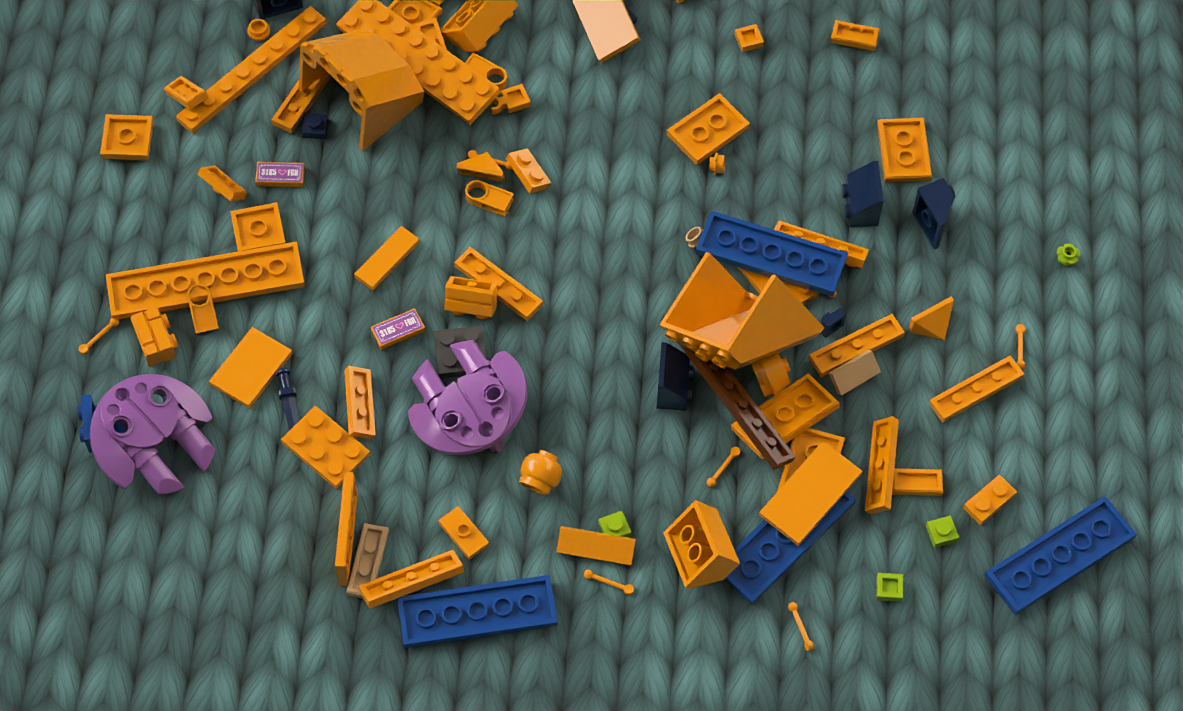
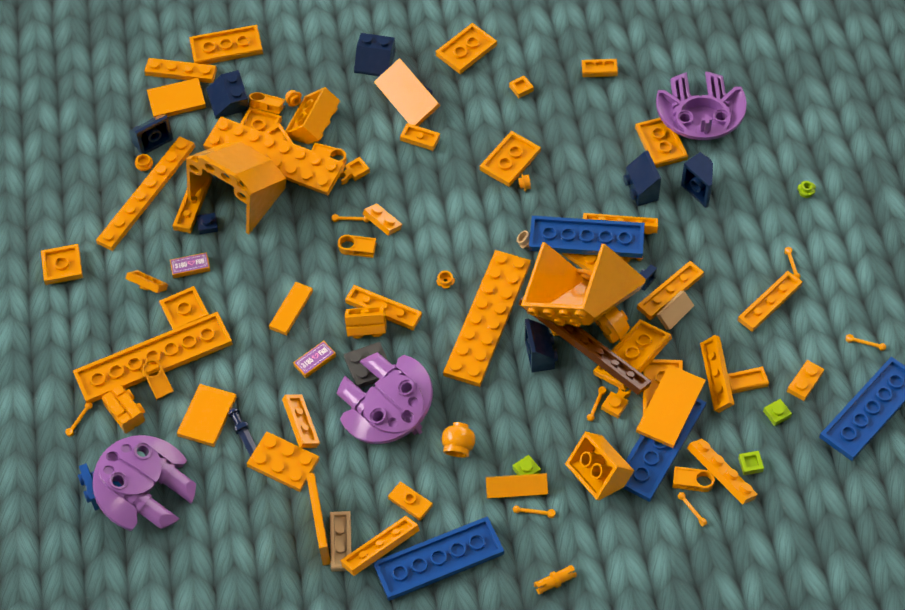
camera: 10 degrees left, 5 degrees down
(185, 92) = (99, 220): light orange plate -> none
(481, 167) = (346, 225): light orange slope -> none
(583, 260) = (445, 275): none -> light orange plate
(604, 74) = (420, 137): none -> light orange plate
(609, 672) = (555, 579): none -> light orange pin
(621, 327) = (487, 318): none -> light orange plate
(747, 472) = (616, 403): none -> light orange plate
(805, 586) = (687, 479): none -> light orange piece
(851, 589) = (722, 471): none -> light orange plate
(933, 321) = (722, 259): light orange slope -> none
(964, 123) = (701, 116): none -> medium lavender piece
(1062, 459) = (849, 338): none -> light orange hinge

